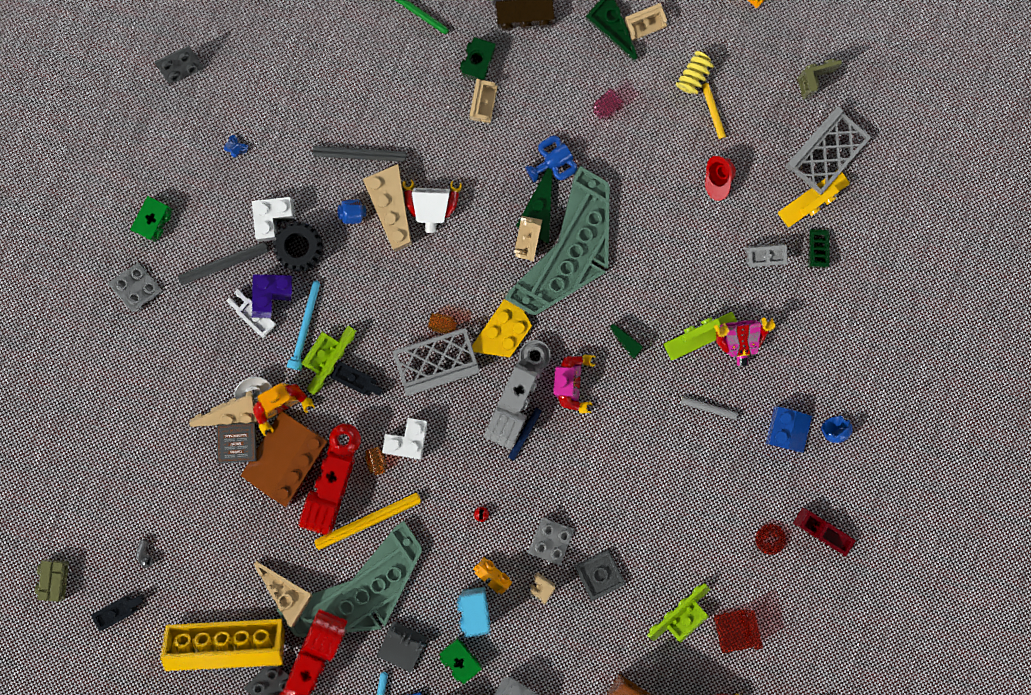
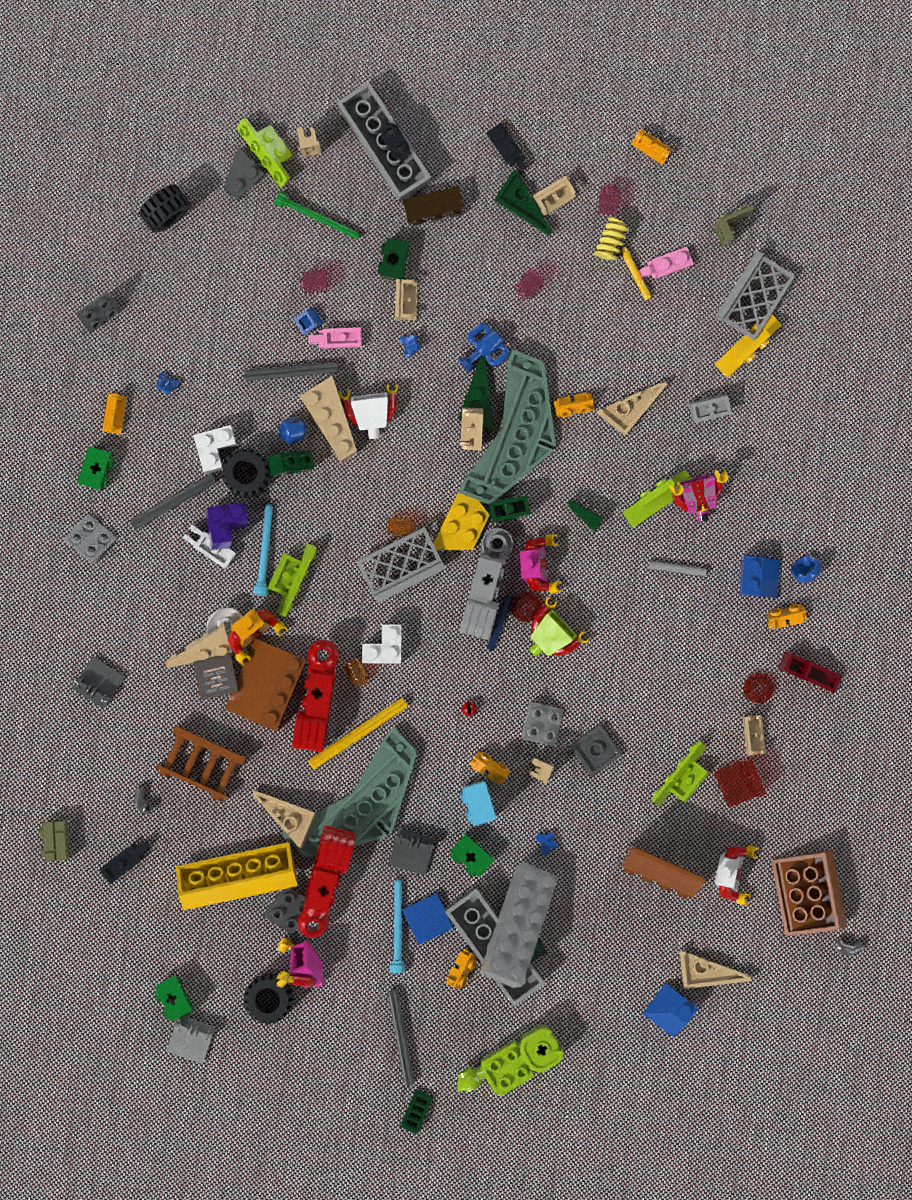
camera: 15 degrees left, 0 degrees up
(120, 430) = (98, 682): none -> dark grey hinge
(179, 168) = (114, 413): none -> light orange hinge
(225, 517) = (199, 744): none -> dark orange fence
(343, 243) = (290, 463): none -> dark green brick
(355, 379) = (323, 595): black hinge -> none
(384, 107) = (308, 321): none -> blue slope
(396, 69) = (314, 282): none -> clear pink brick
(410, 128) = (337, 338): none -> bright pink hinge
(481, 146) = (411, 344): none -> blue piece
(537, 659) = (547, 842): none -> blue piece
(545, 427) = (520, 599): none -> clear red gear
(552, 323) = (509, 509): none -> dark green brick
(575, 454) = (552, 633): none -> lime torso
(623, 232) = (582, 404): none -> light orange hinge
(684, 245) = (627, 412): none -> tan wing
(698, 34) = (608, 200): none -> clear pink brick
(719, 176) = (651, 339): red piece -> none
(746, 106) = (668, 264): none -> bright pink hinge
(759, 585) = (754, 735): none -> tan hinge
(818, 471) = (777, 617): none -> light orange hinge
(826, 257) = (762, 409): dark green slope -> none

